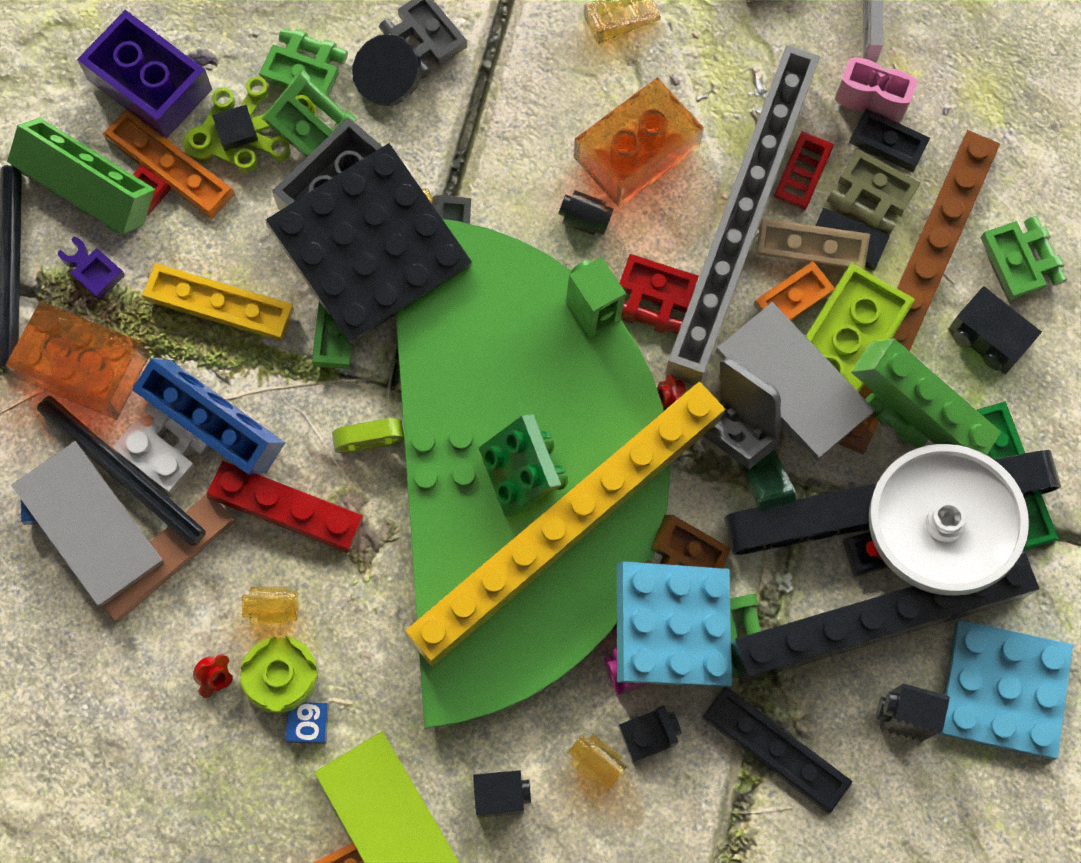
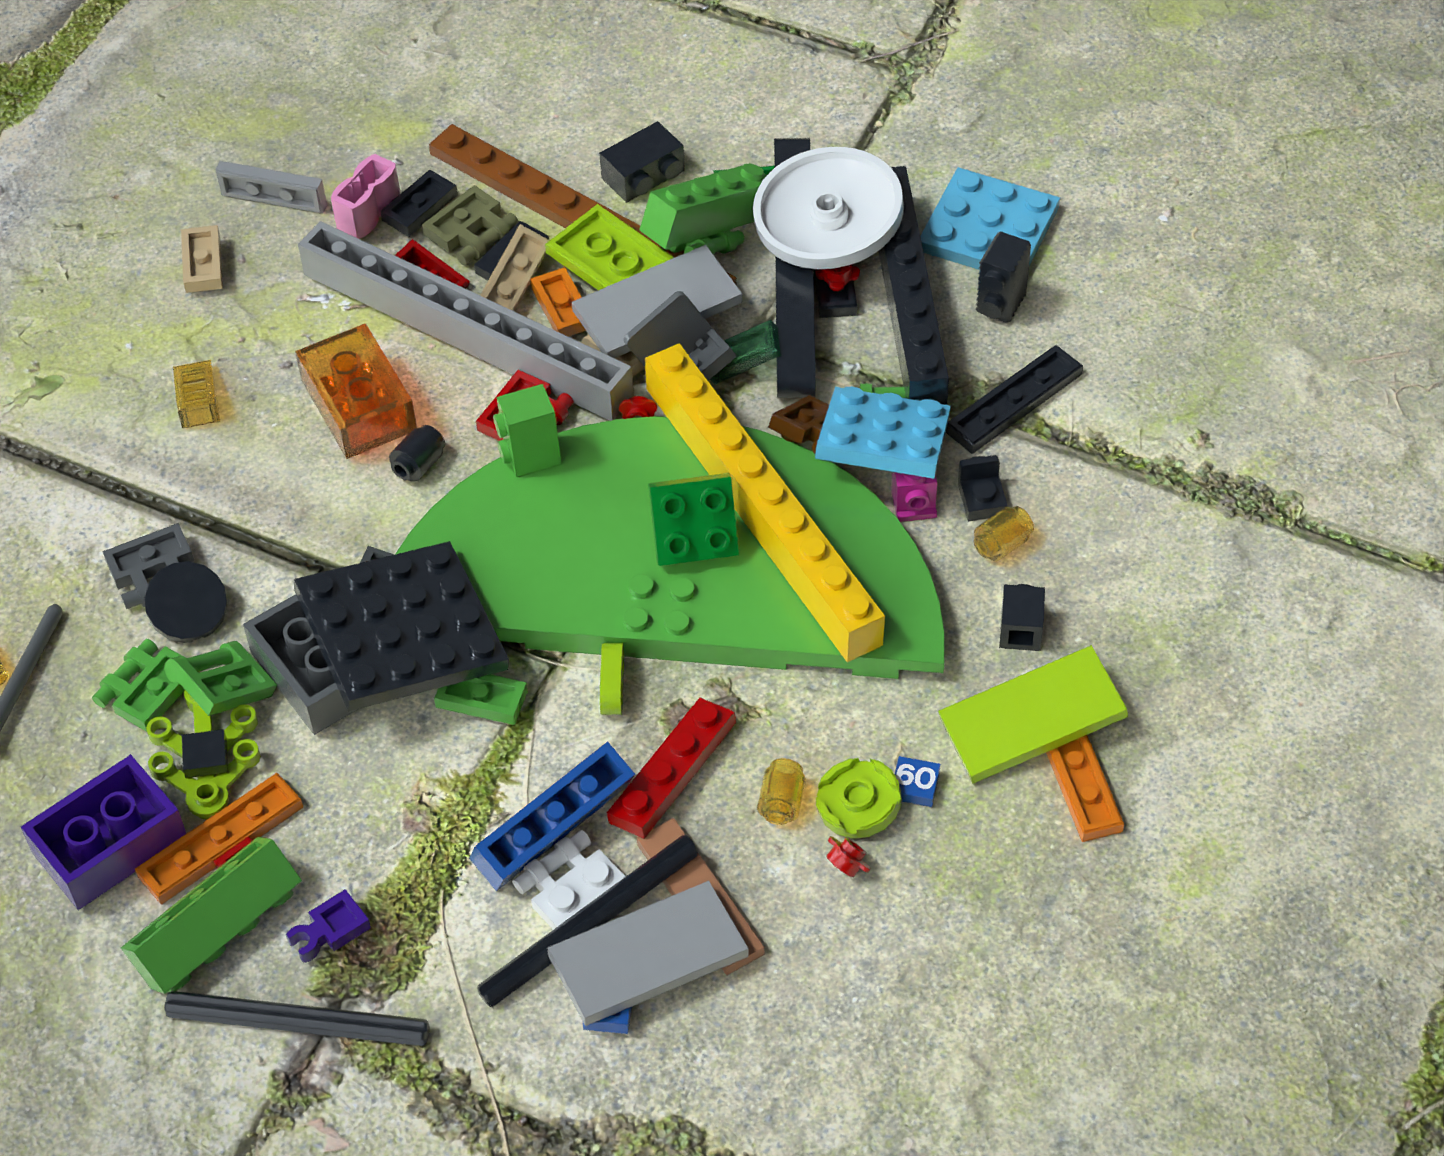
camera: 75 degrees left, 20 degrees down
(78, 360) = (444, 945): clear orange brick -> none
(218, 302) = (412, 803): yellow plate -> none
(1015, 262) = (573, 130): bright green plate -> none

